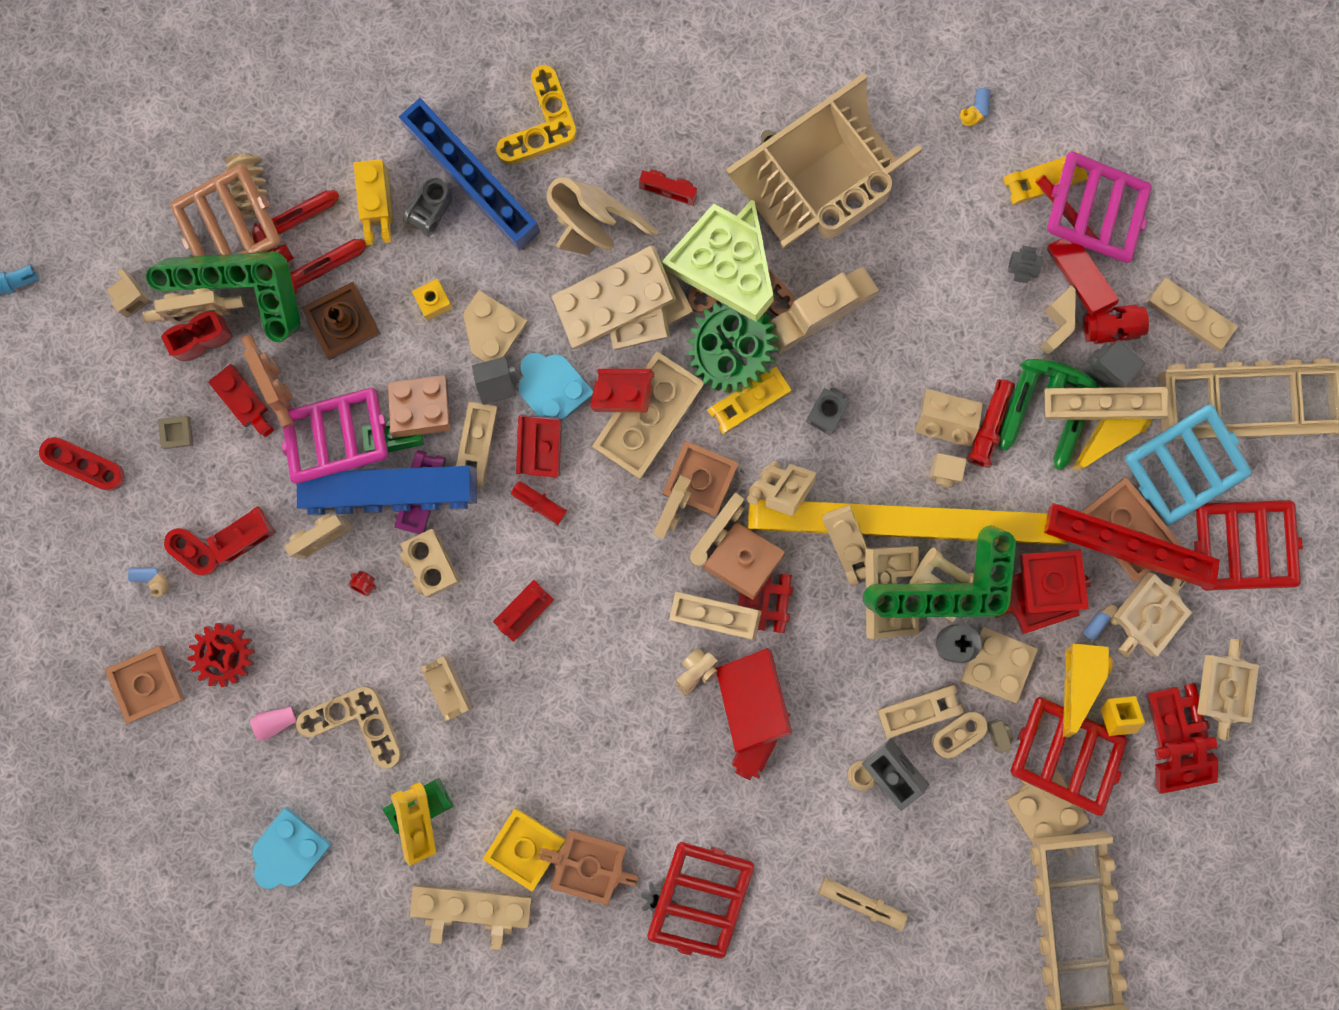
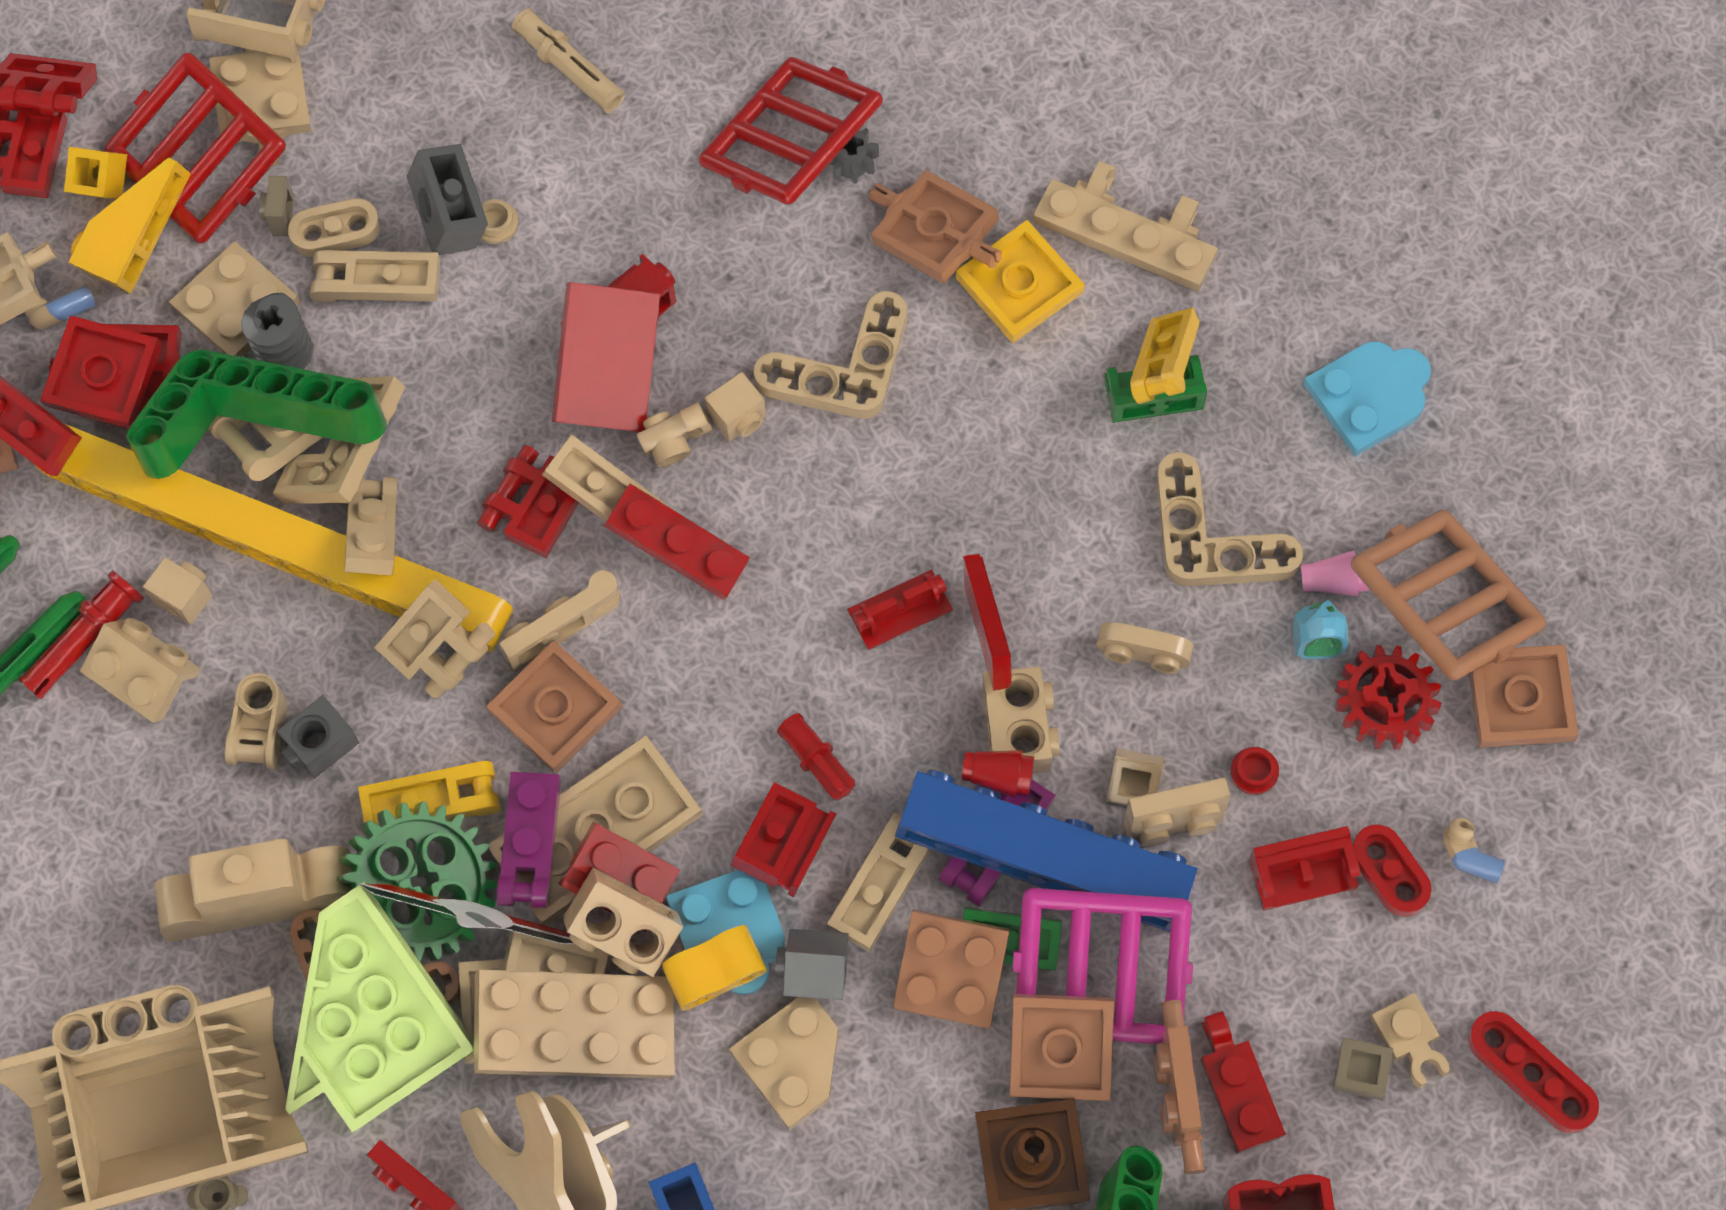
camera: 160 degrees left, 15 degrees down
(157, 463) = (1409, 1032): none -> tan plate
(229, 711) = (1427, 633): none -> nougat bar
(272, 681) = (1320, 631): none -> medium azure rock
(286, 585) = (1254, 770): none -> red plate
(342, 383) = (1061, 1047): none -> nougat plate
(353, 557) = (1133, 776): none -> tan slope
(359, 635) = (1128, 642): none -> tan plate
(362, 583) = (1134, 731): red plate -> none
(423, 522) = (999, 770): none -> red cone
(438, 306) = (875, 1153): yellow plate -> none
(446, 688) = (1056, 535): tan hinge -> none
(464, 612) = (987, 622): none -> red tile
(548, 356) = (714, 967): none -> yellow axle
(600, 754) = (857, 376): none -> tan beam
(608, 361) = (629, 914): none -> tan brick
(664, 701) = (736, 407): none -> tan plate
(667, 601) = (676, 541): none -> red plate
(678, 498) = (612, 669): tan plate -> none
(681, 393) = (529, 838): none -> magenta plate
(688, 332) = (470, 913): none -> sticker
(744, 560) = (536, 559): nougat plate -> none
(865, 402) = (253, 731): none -> tan piece

